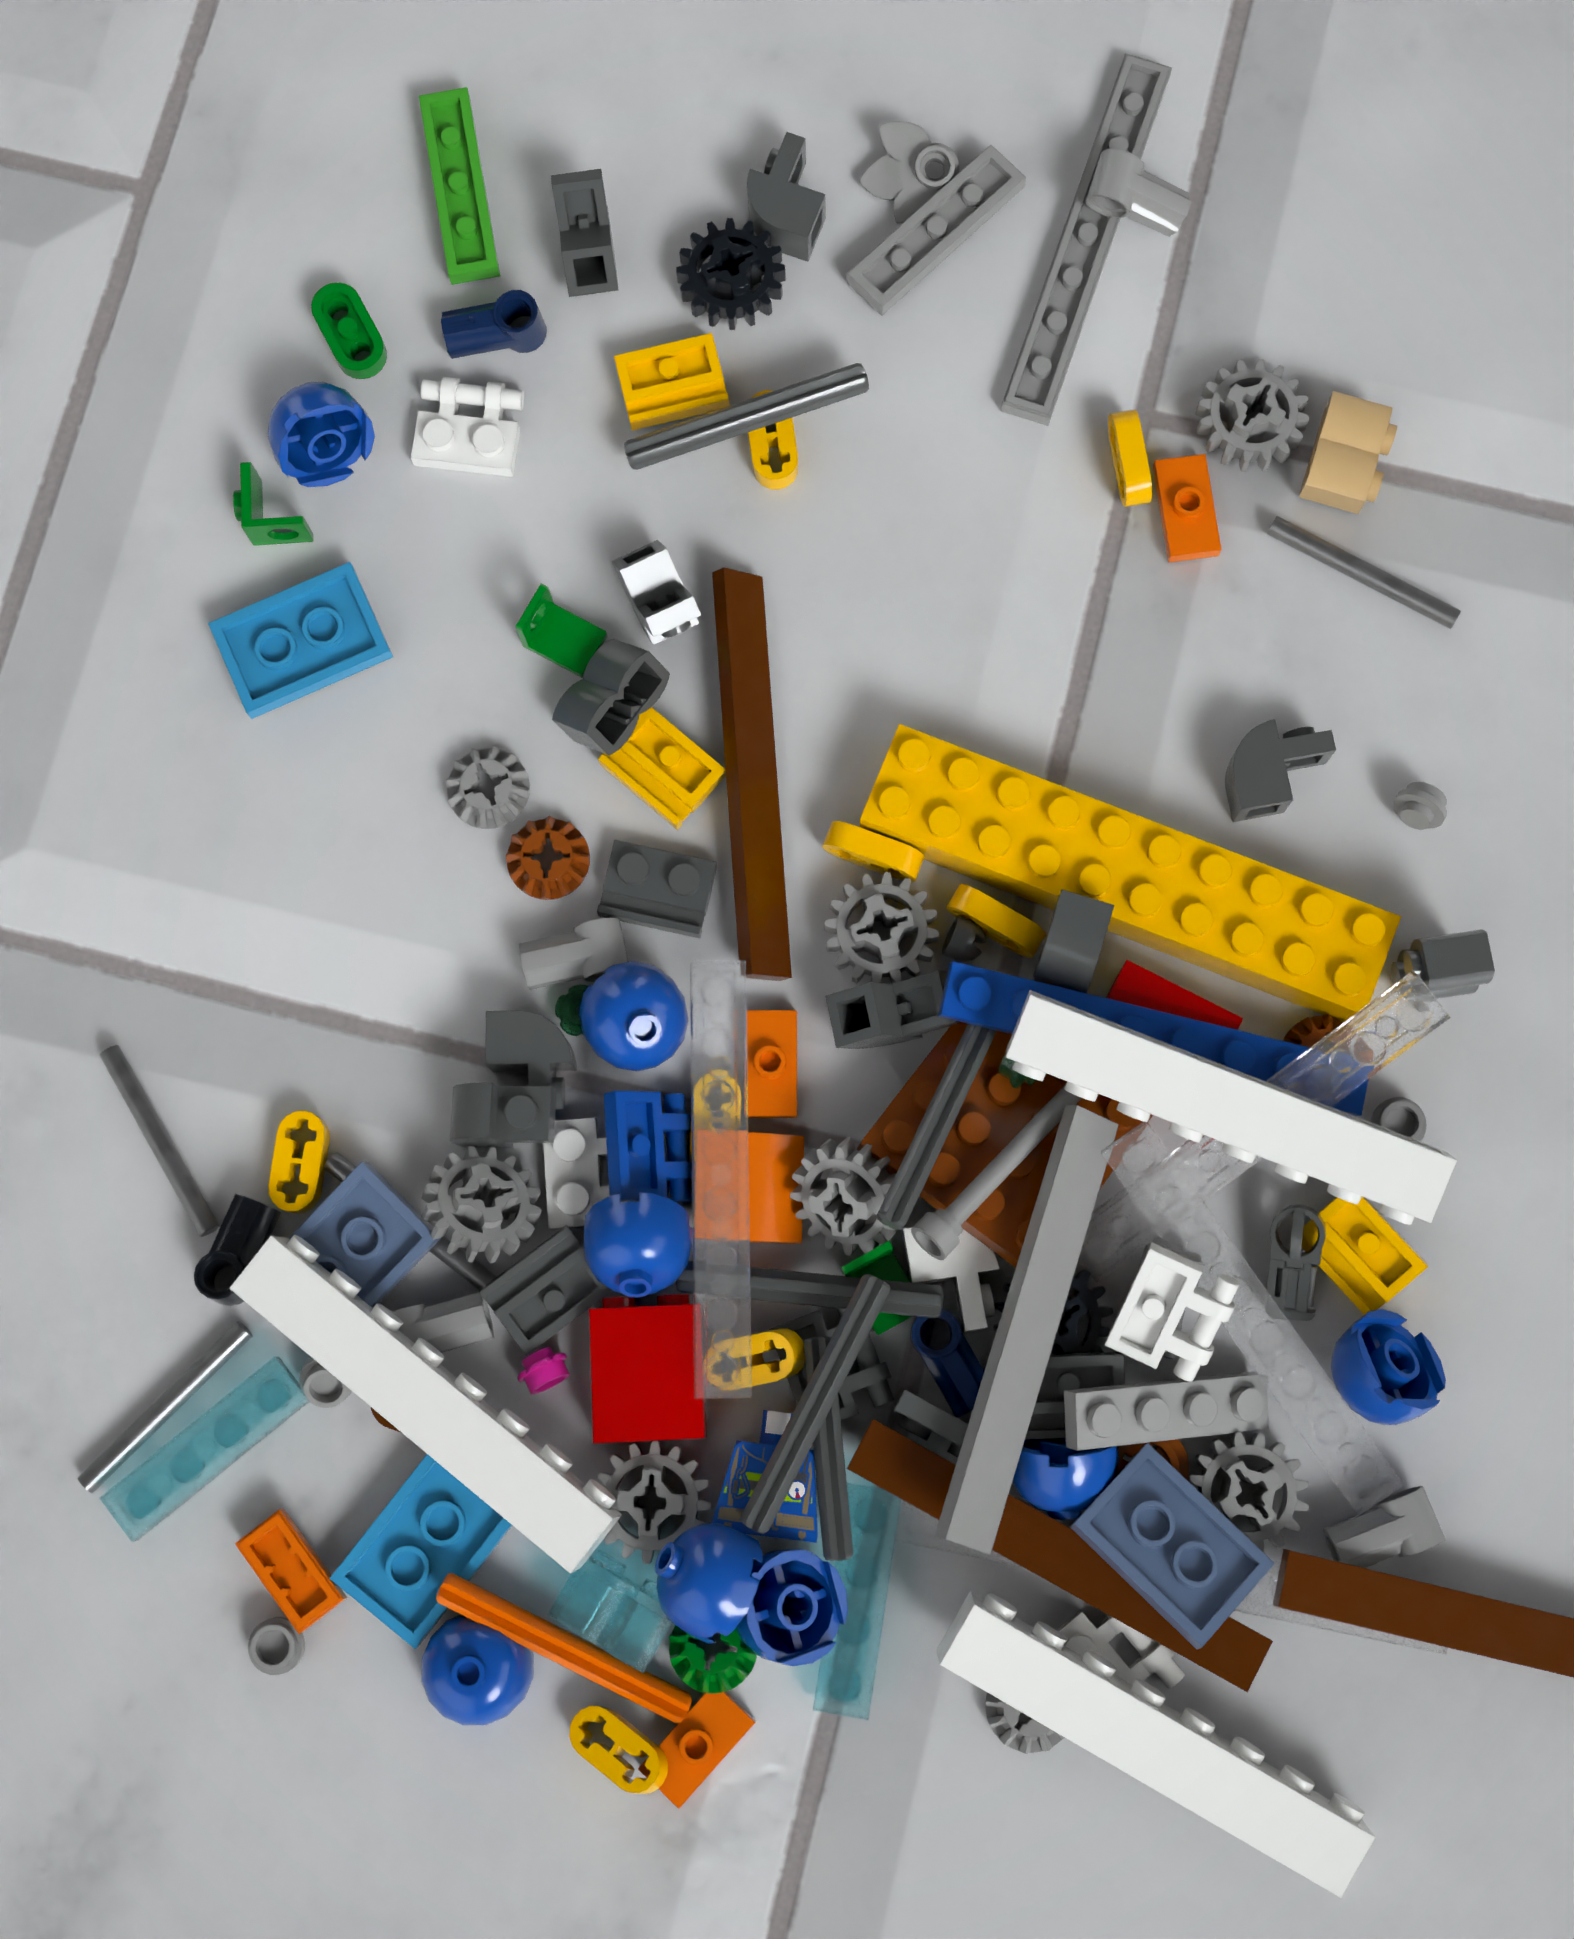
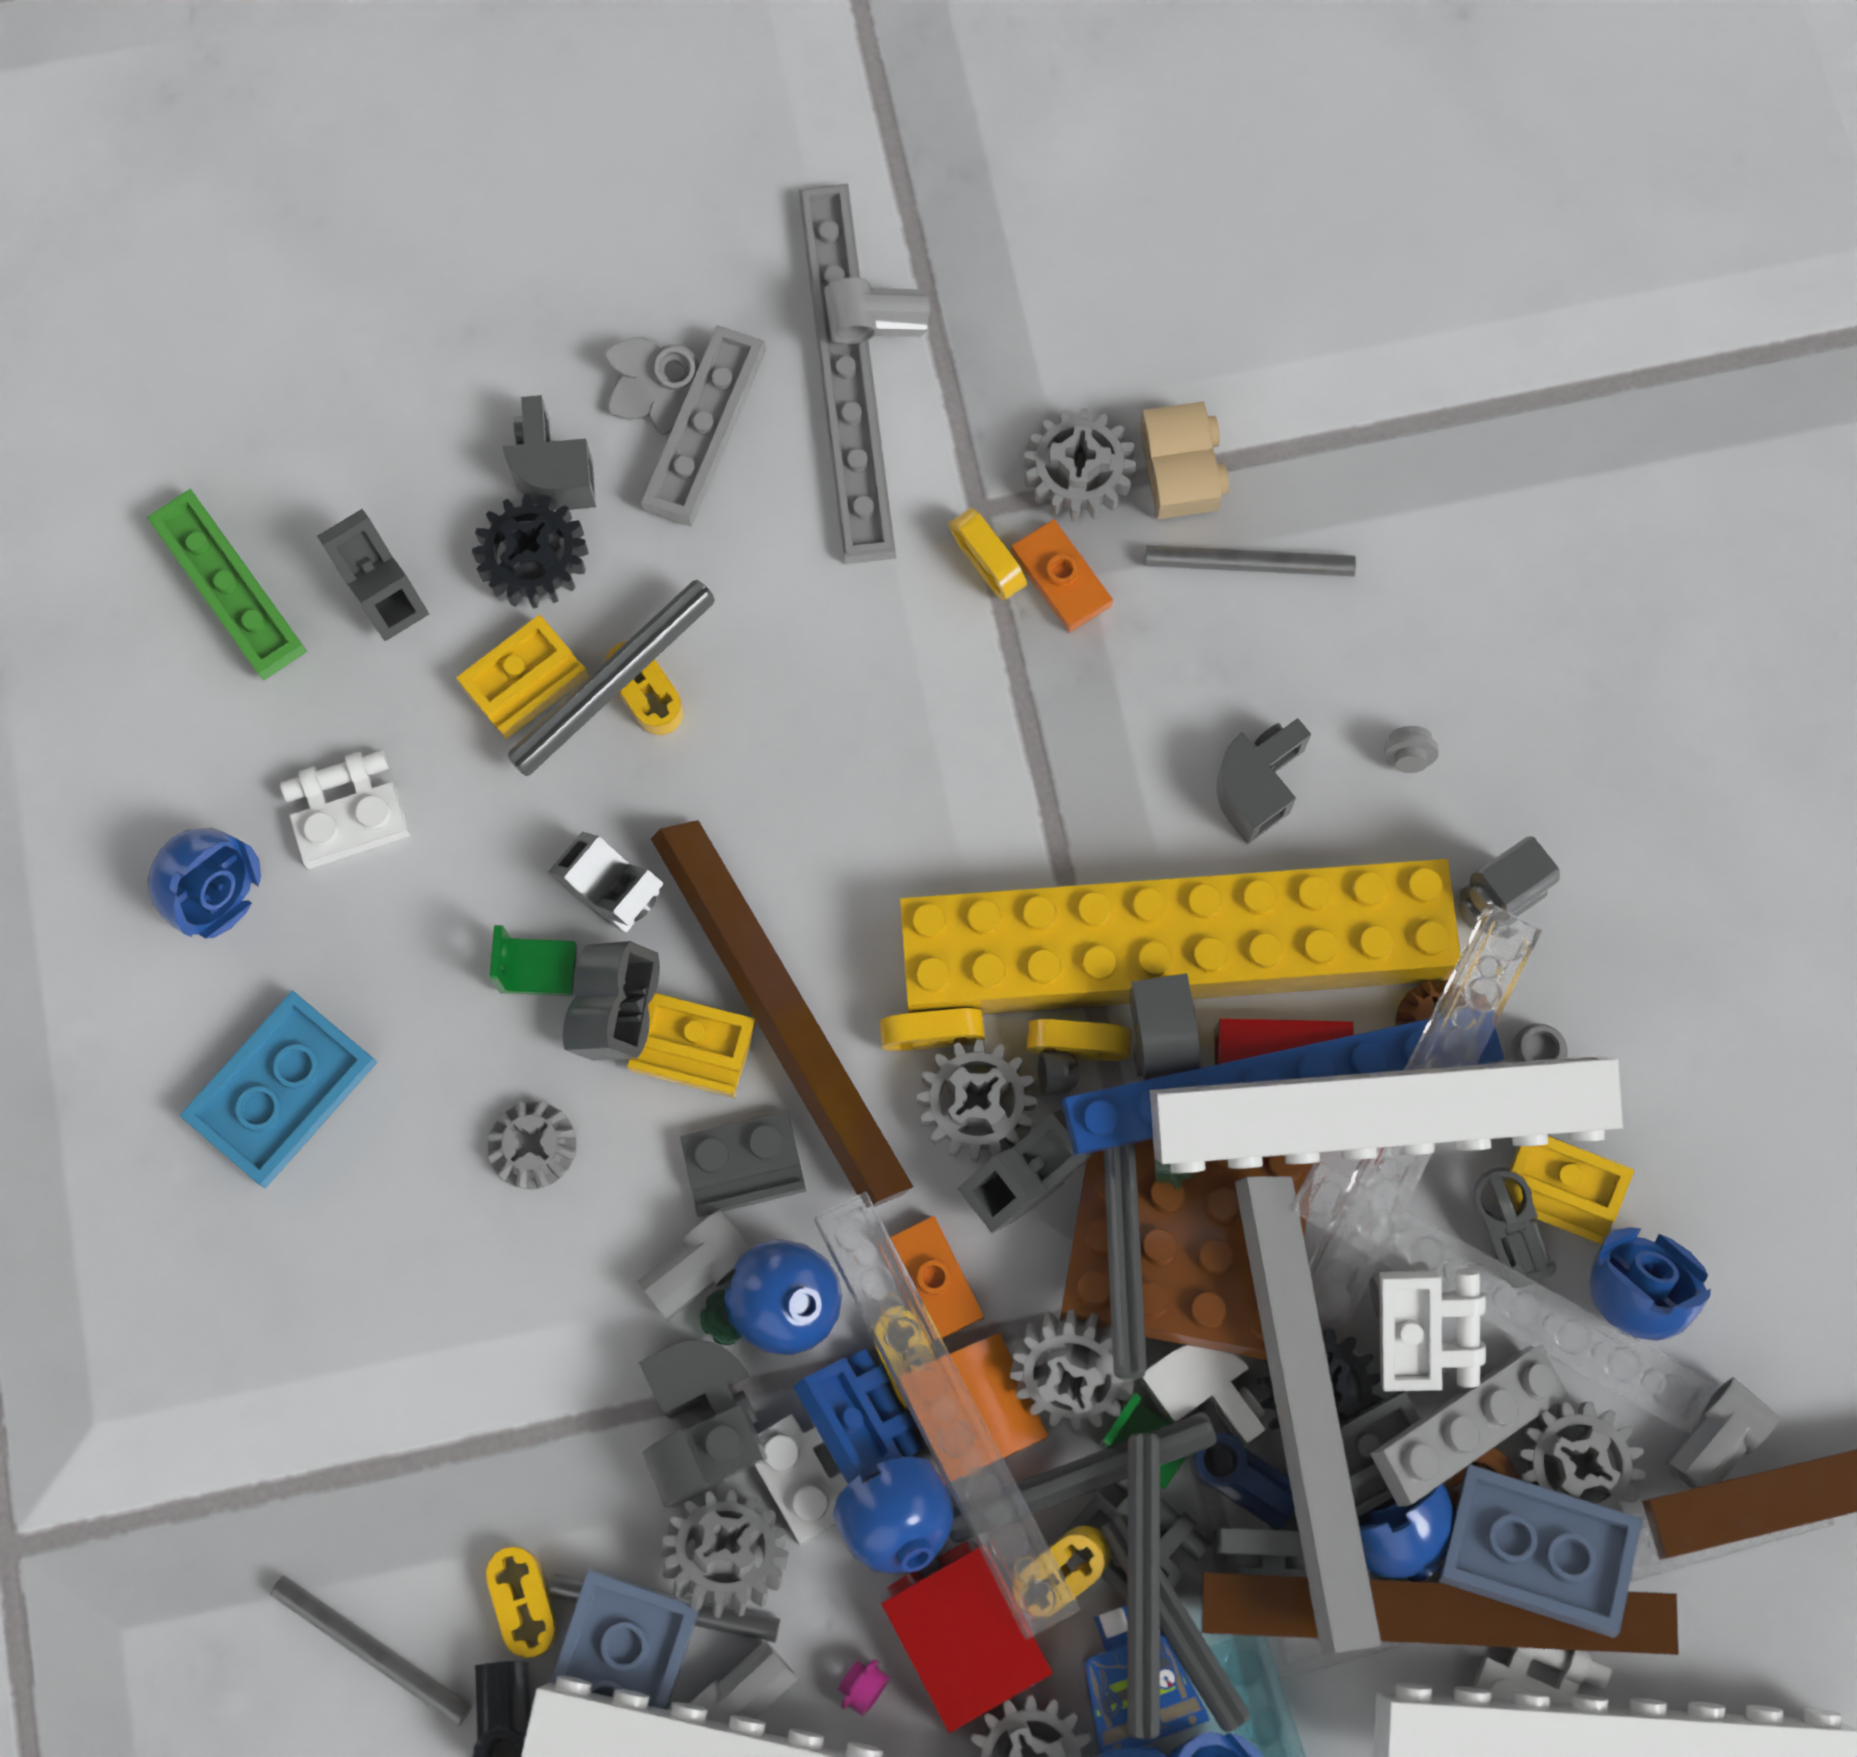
camera: 30 degrees left, 5 degrees down
(249, 510) = (167, 987): green bracket -> none
(351, 333) = (186, 771): green plate -> none
(488, 326) = (320, 706): dark blue piece -> none
(544, 1290) = (826, 1607): dark grey plate -> none
(564, 875) = (648, 1192): dark orange gear -> none
(939, 1231) = (1180, 1358): light grey piece -> none

